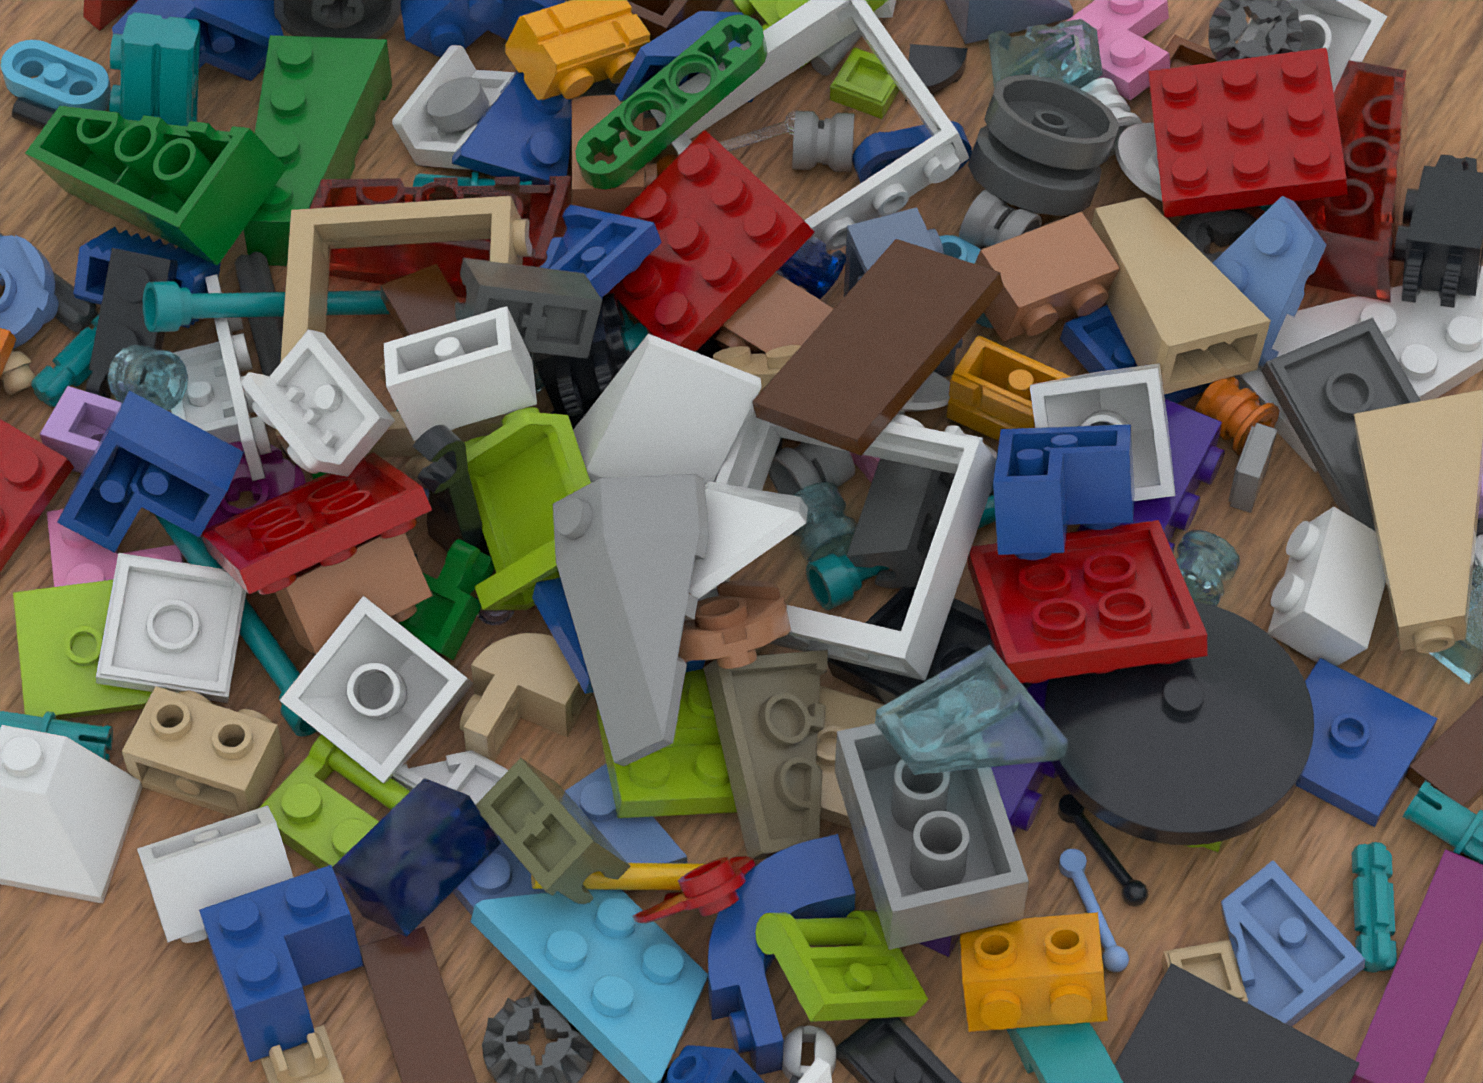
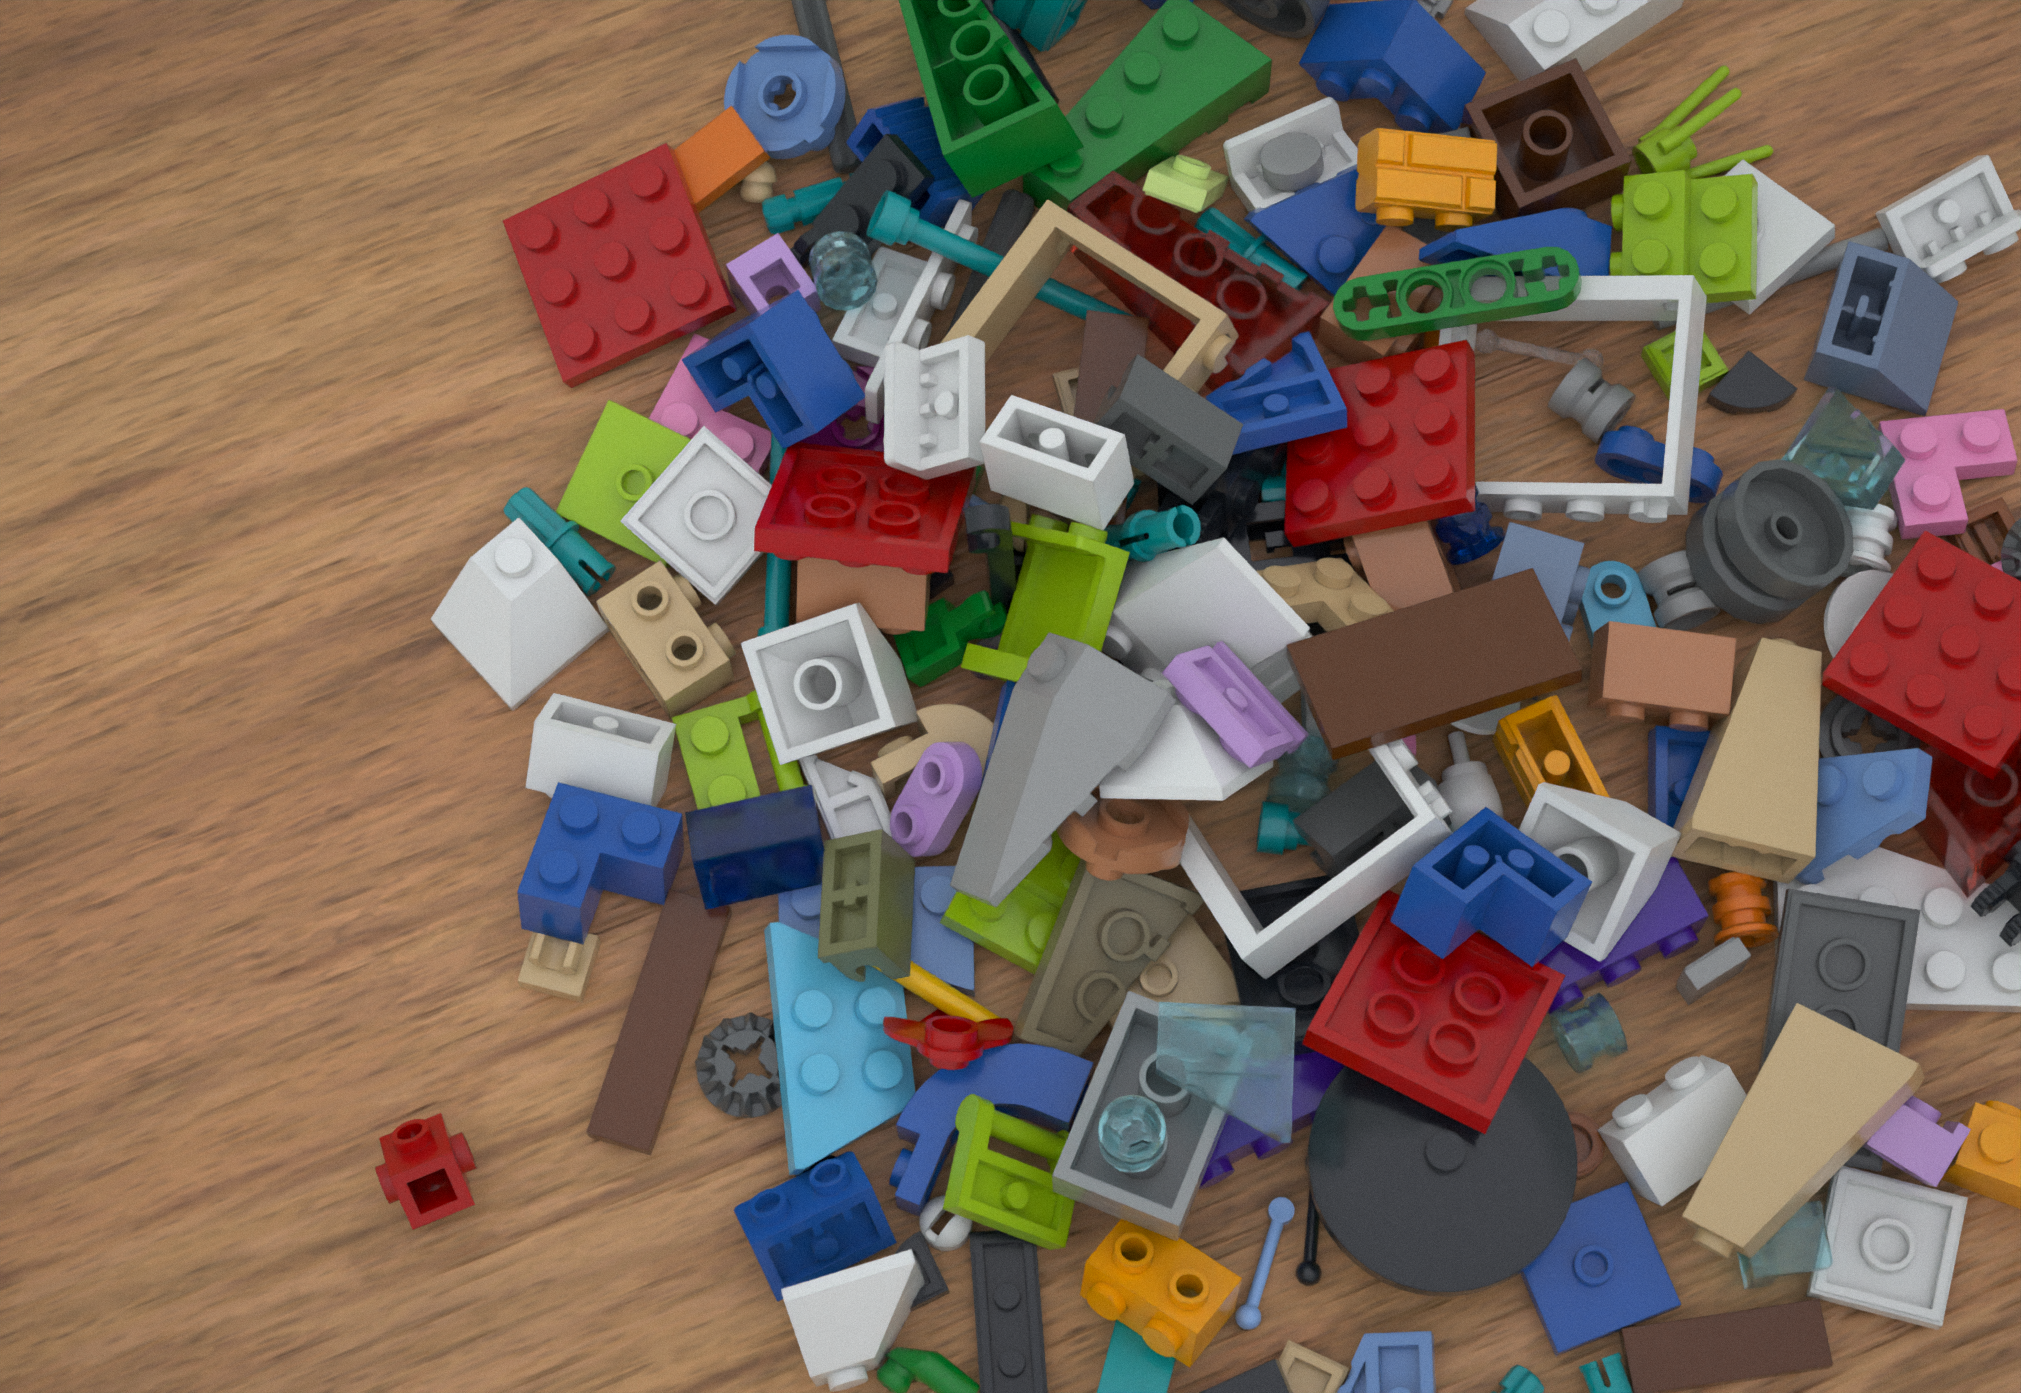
camera: 40 degrees right, 15 degrees up
(386, 160) = (1185, 183): none -> yellowish green plate
(543, 723) = (936, 798): none -> lavender plate
(584, 379) = (1160, 530): none -> teal pin
(773, 472) = (1235, 704): none -> lavender plate
(944, 812) = (1135, 1120): none -> clear light blue wheel

